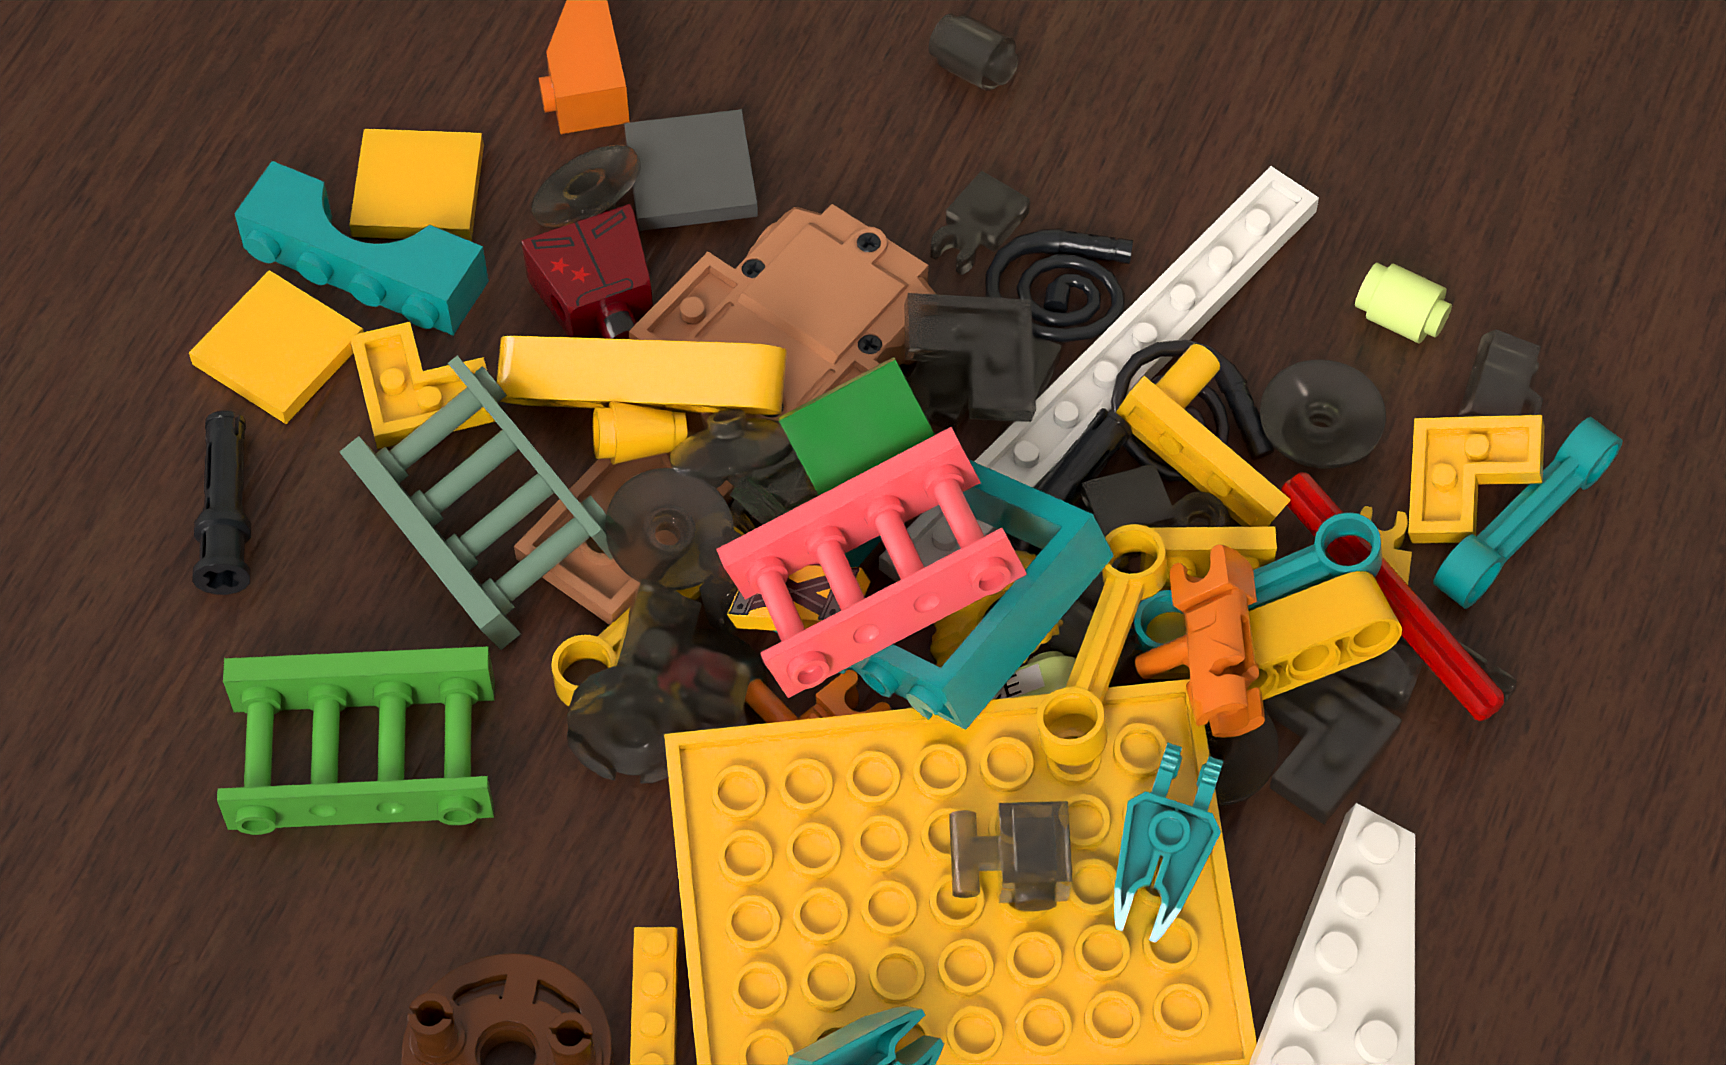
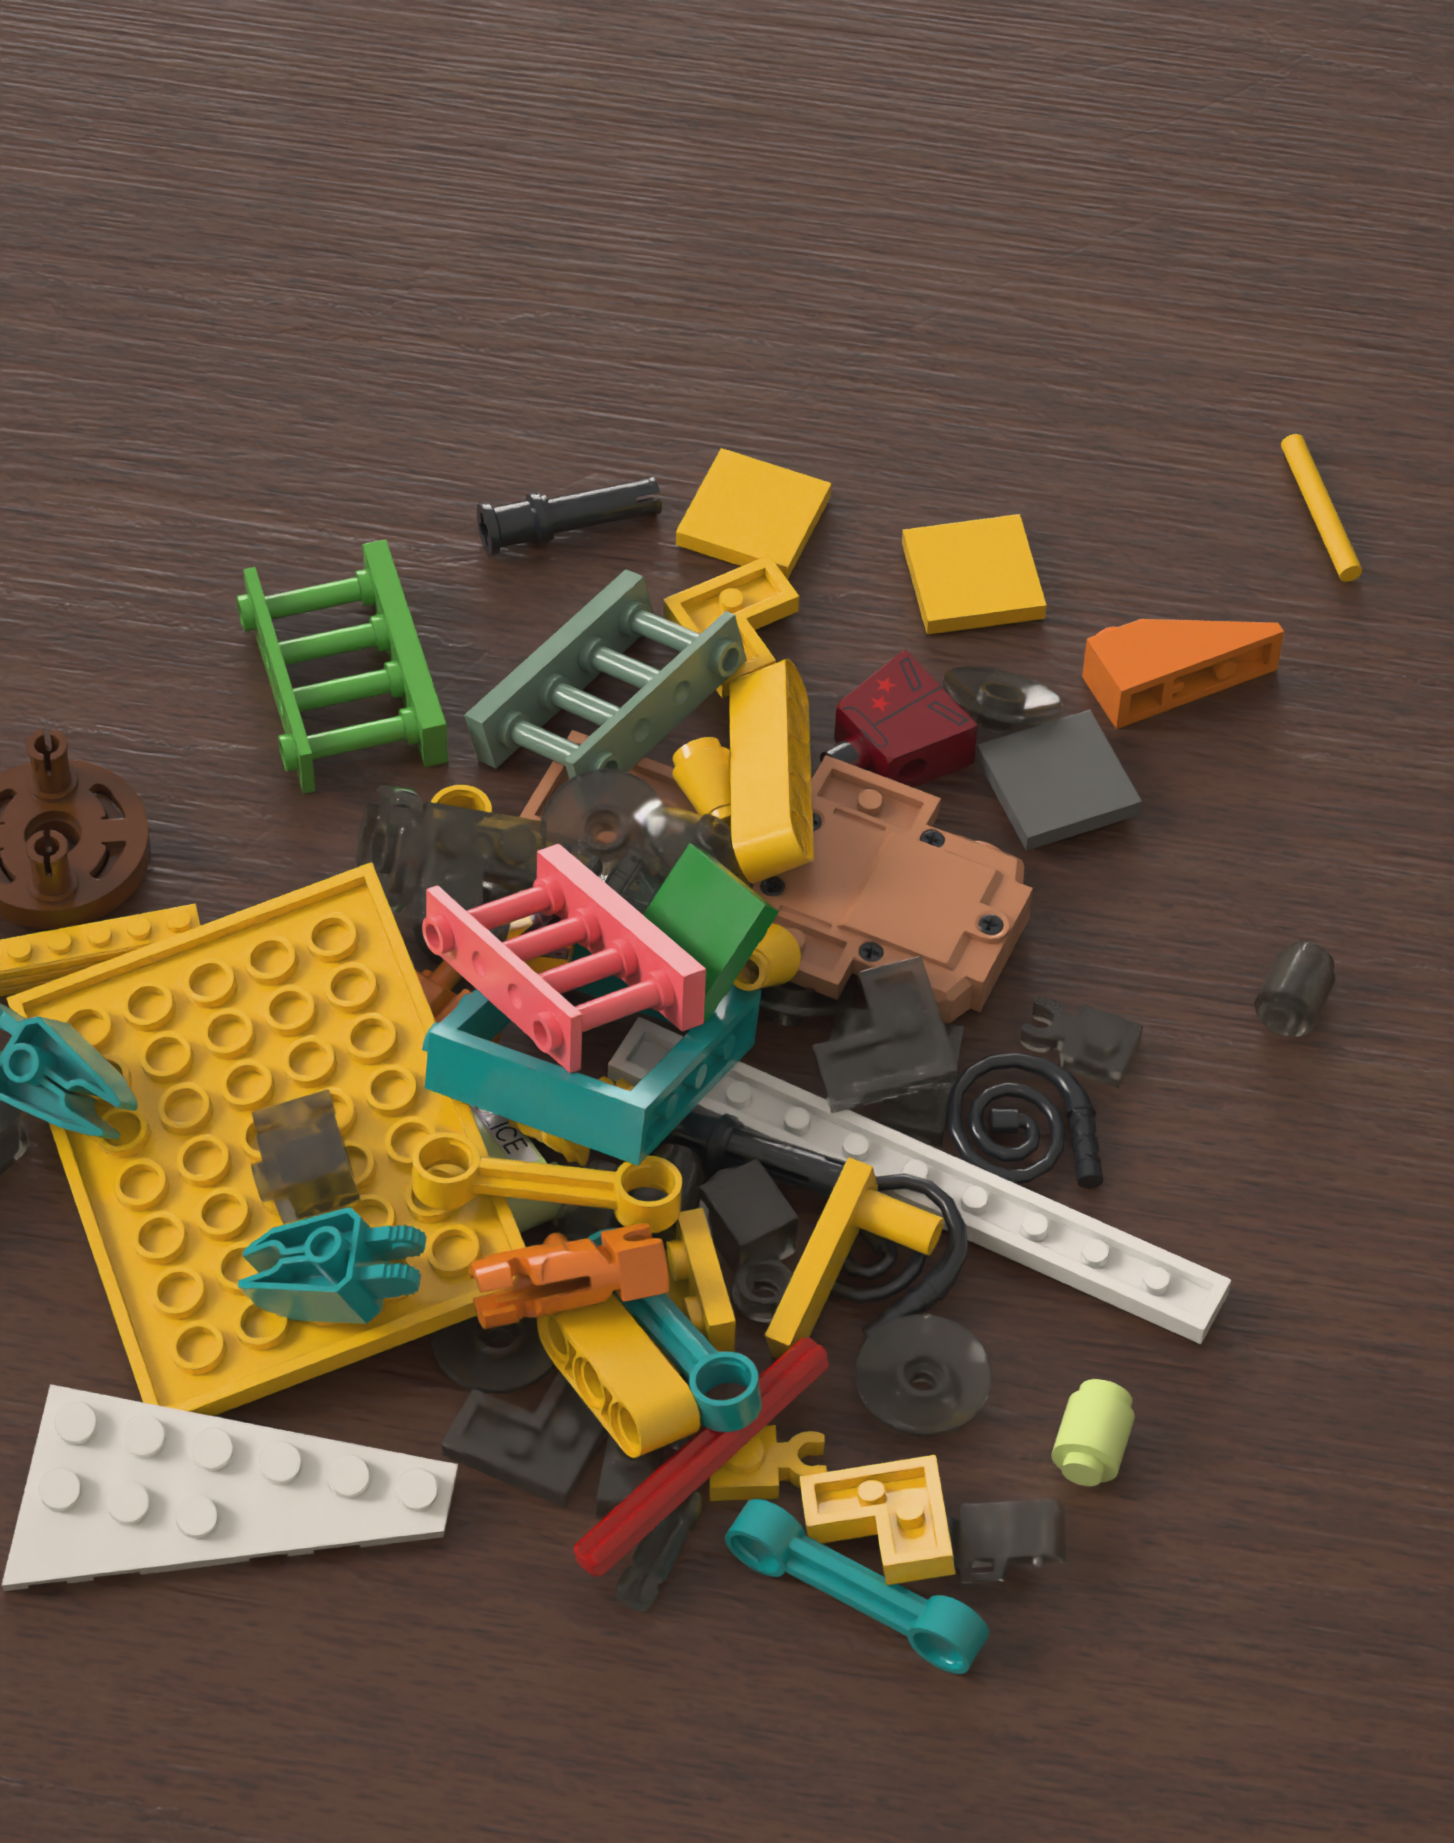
camera: 75 degrees right, 5 degrees down
(424, 277) = (860, 595): teal arch -> none

